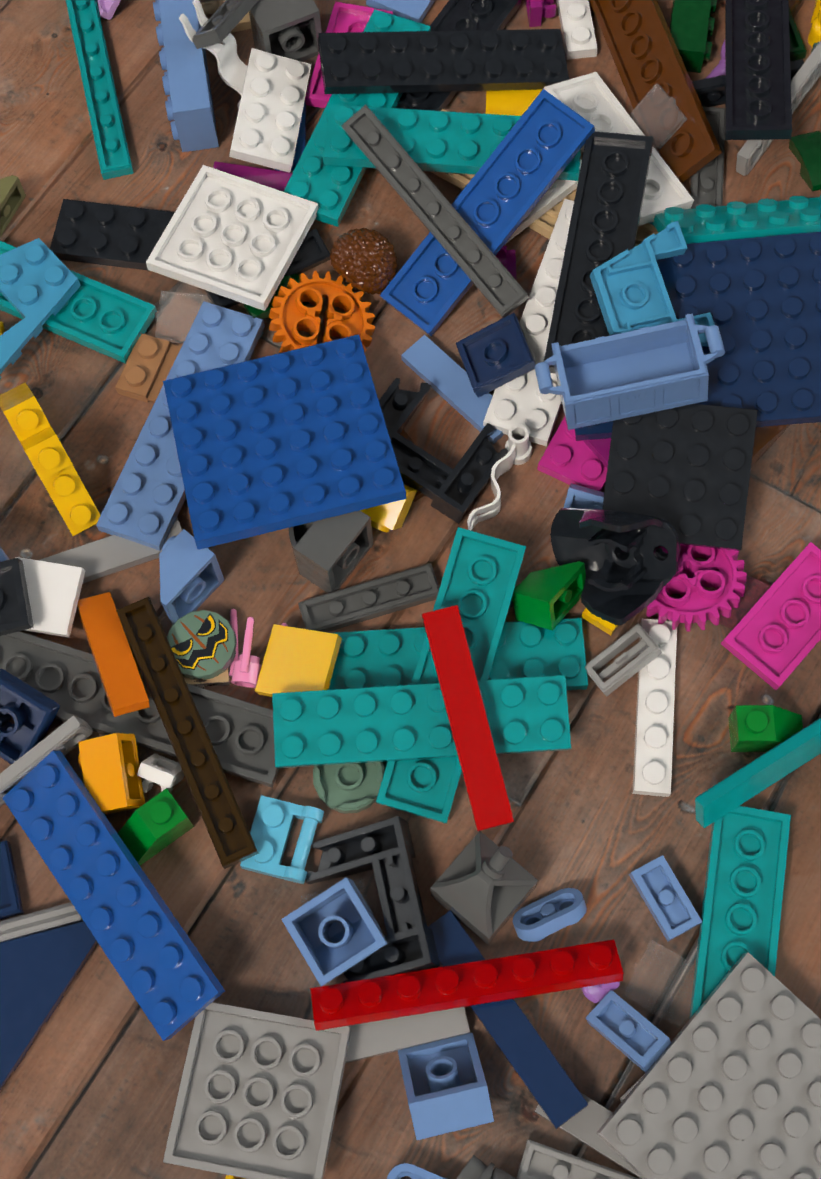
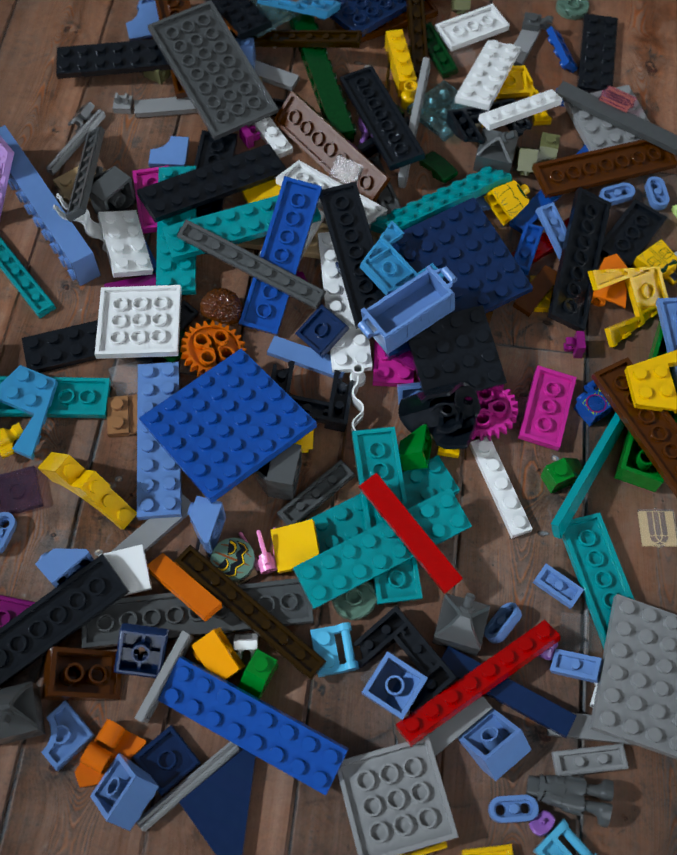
camera: 30 degrees left, 5 degrees down
(631, 668) = (465, 462): light grey tile -> none

